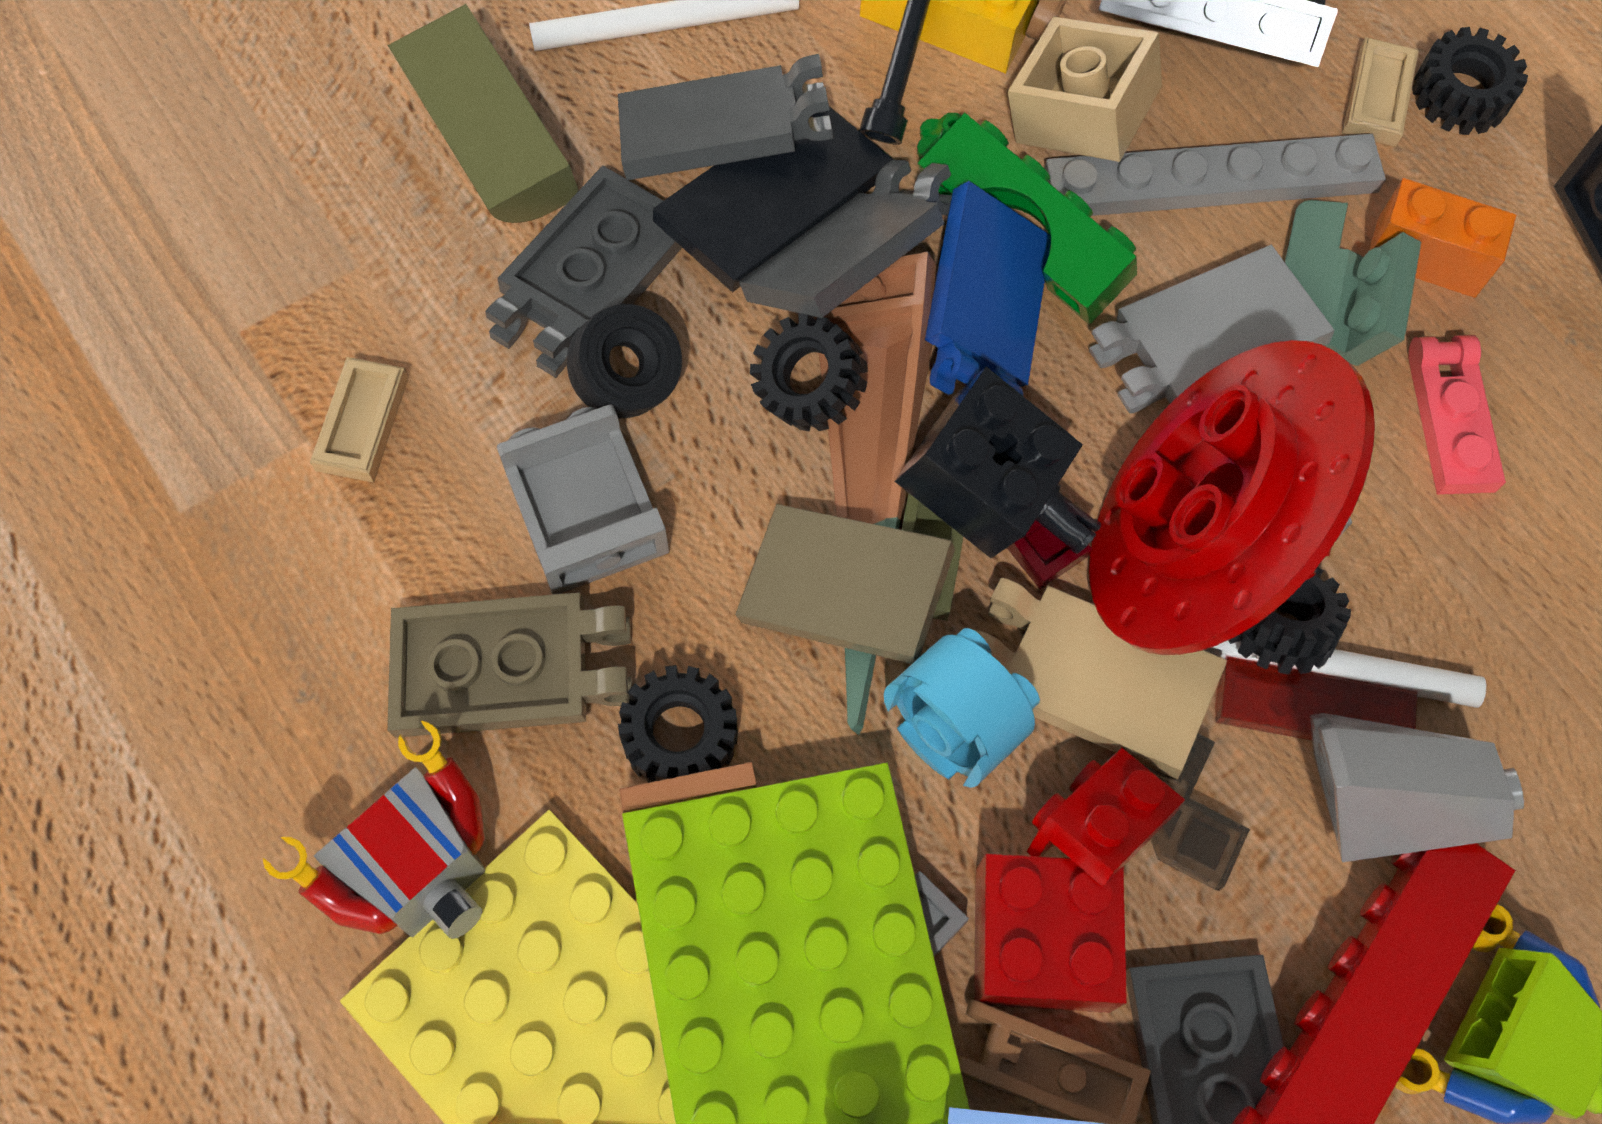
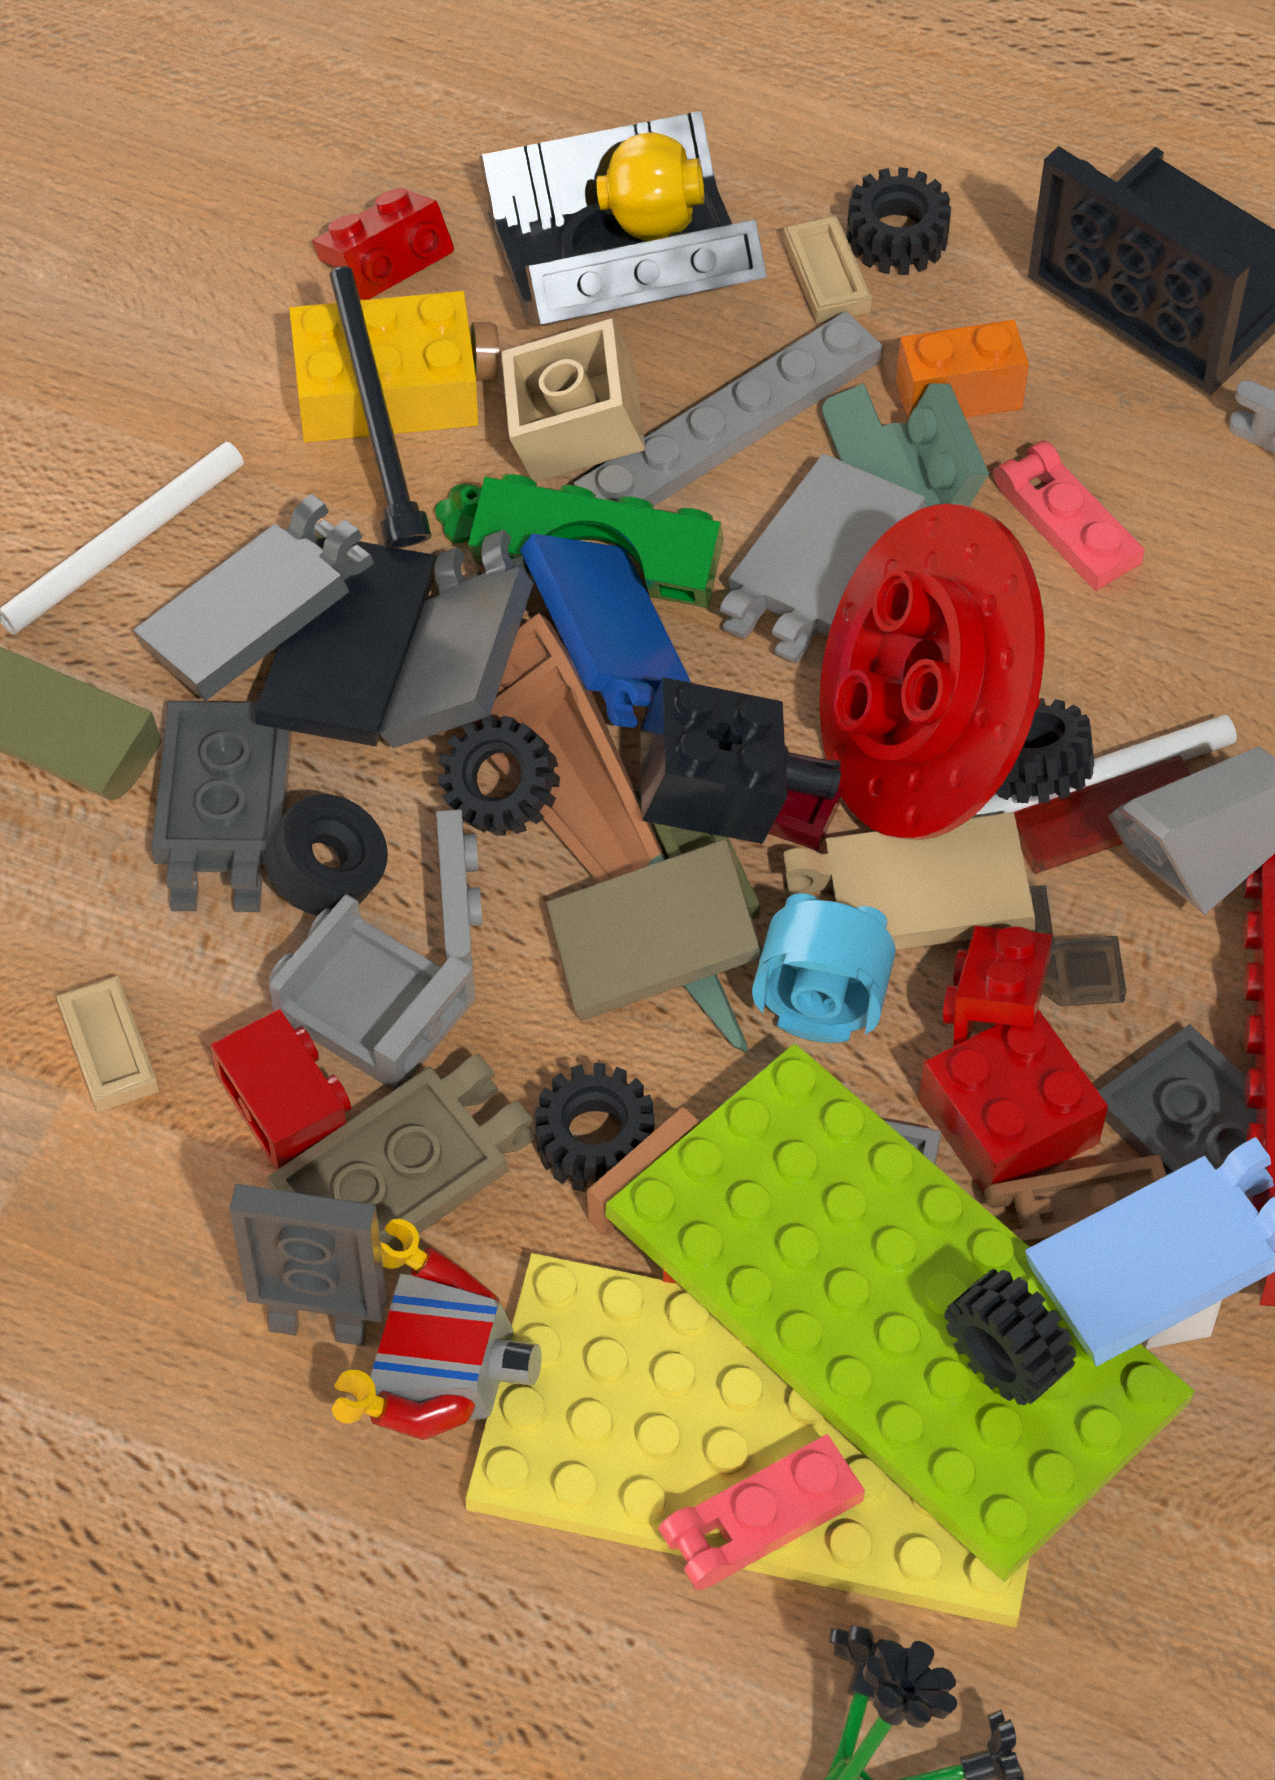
camera: 30 degrees left, 10 degrees down
(328, 725) = (310, 1258): none -> dark grey tile
(452, 538) = (279, 1086): none -> red brick
(705, 459) = (459, 903): none -> light grey hinge

